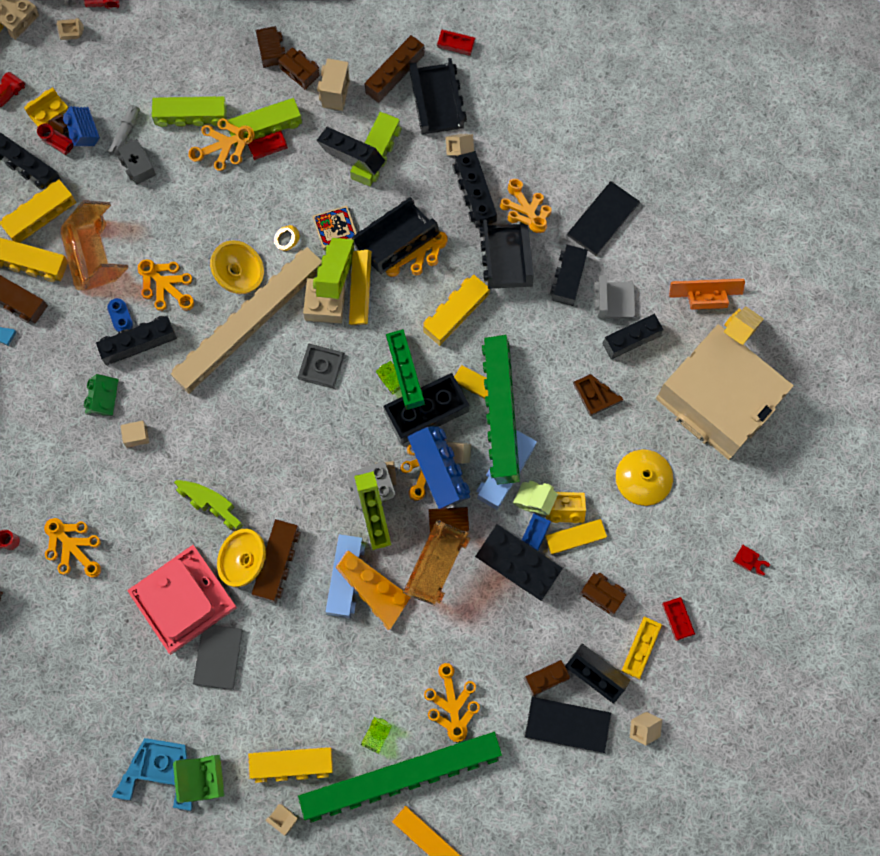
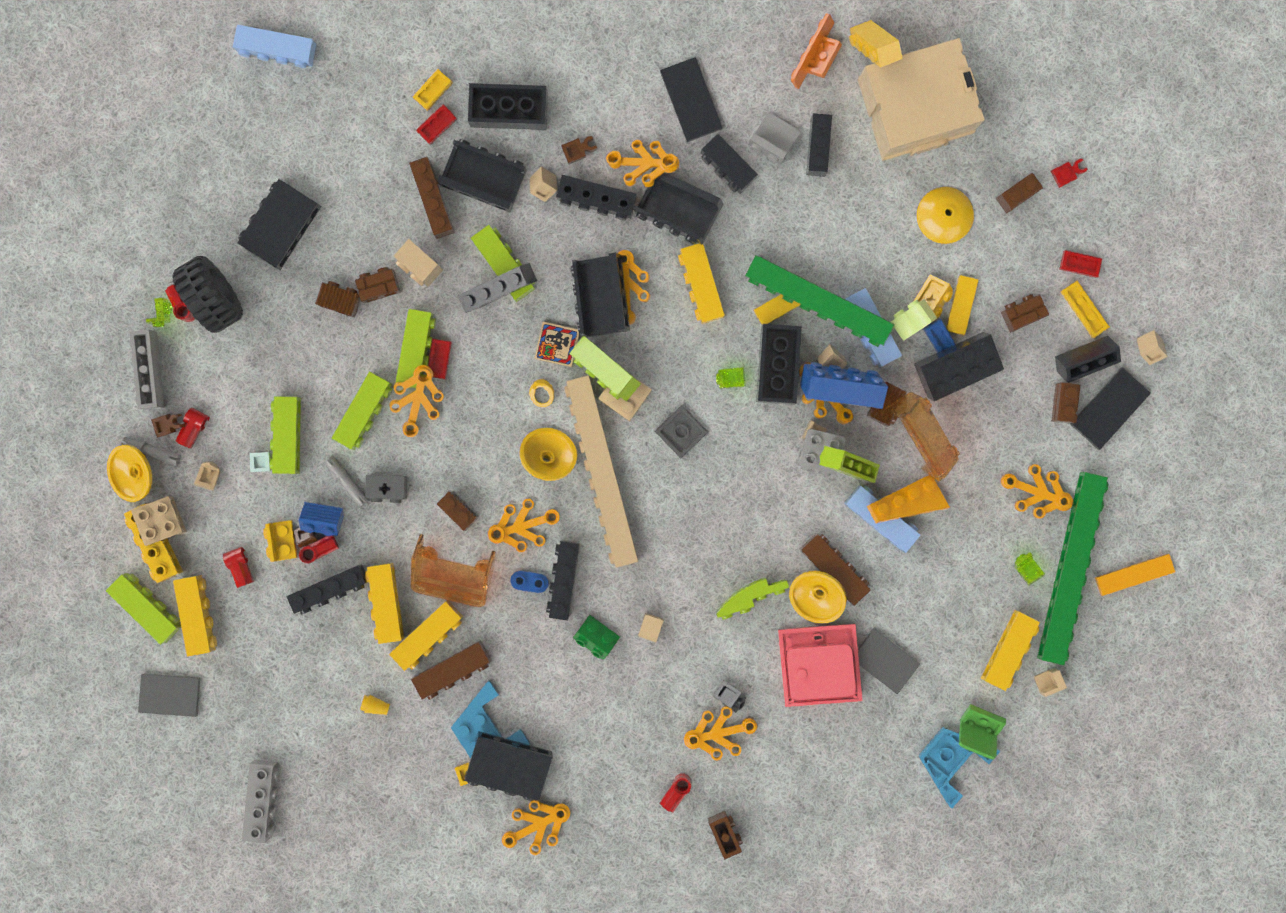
camera: 60 degrees left, 15 degrees up
(103, 60) = (260, 462): none -> light aqua plate
(109, 537) = (730, 696): none -> bracket
(136, 66) = (286, 435): none -> lime brick
(148, 225) = (457, 510): none -> reddish brown brick
(360, 287) = (631, 356): yellow tile -> none
(405, 369) = (735, 362): green plate -> none
(481, 25) = (432, 89): none -> yellow plate
(504, 83) = (507, 106): none -> black brick
(504, 153) = (576, 151): none -> reddish brown plate
(595, 395) = (850, 211): reddish brown wing -> none
(703, 526) = (1019, 193): none -> reddish brown brick

